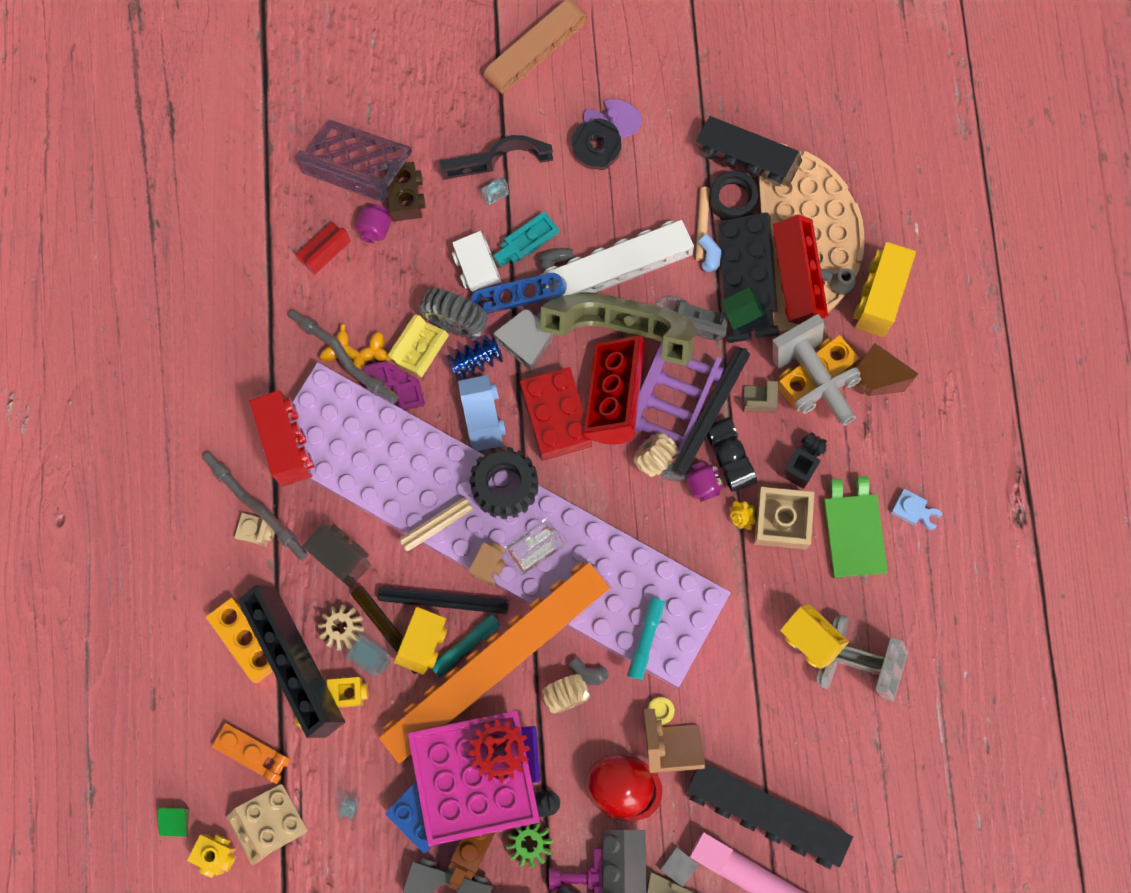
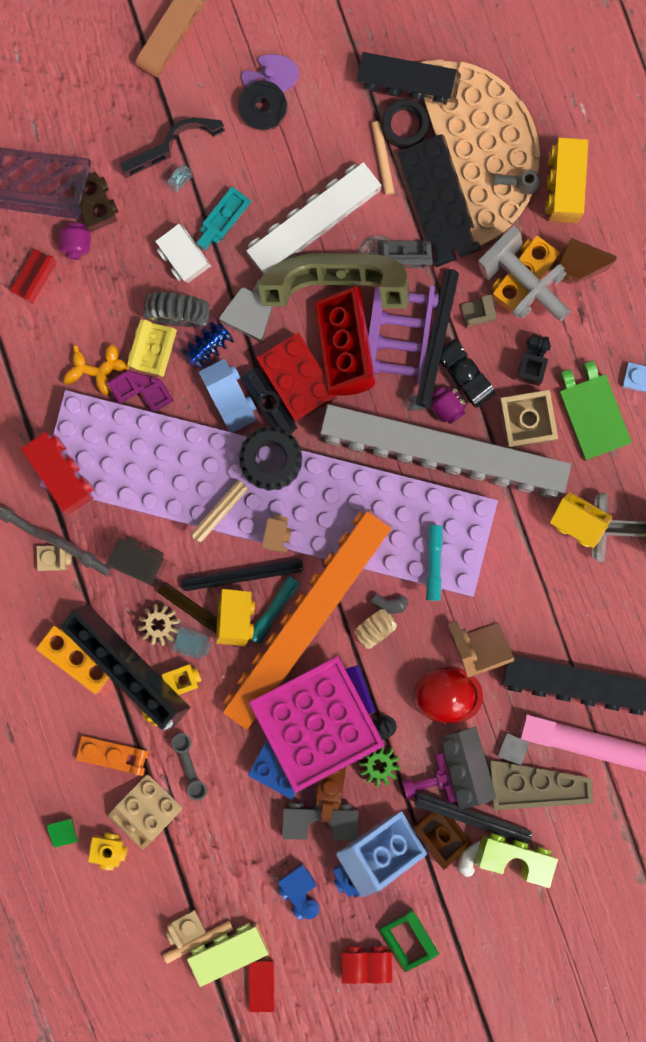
camera: 20 degrees left, 10 degrees up
(327, 814) = (195, 789): none -> dark grey bar
(349, 807) = (213, 778): clear light blue bush -> none
(373, 385) = (125, 398): flat silver bar -> none
(488, 742) = (344, 701): red gear -> none
(515, 417) = (261, 389): none -> black piece
(518, 297) = (229, 271): blue beam -> none
(534, 547) = (312, 507): clear slope -> none
(555, 255) = (252, 226): dark grey arm -> none
(655, 454) = (397, 392): tan gear -> none
(663, 709) = (464, 617): light yellow tile -> none
(689, 527) = (445, 451): none -> light grey brick
(713, 253) = (401, 190): light blue arm -> none
(742, 308) = (442, 234): dark green piece -> none
(742, 515) = (490, 425): yellow plant -> none
(800, 269) = (485, 183): red brick -> none

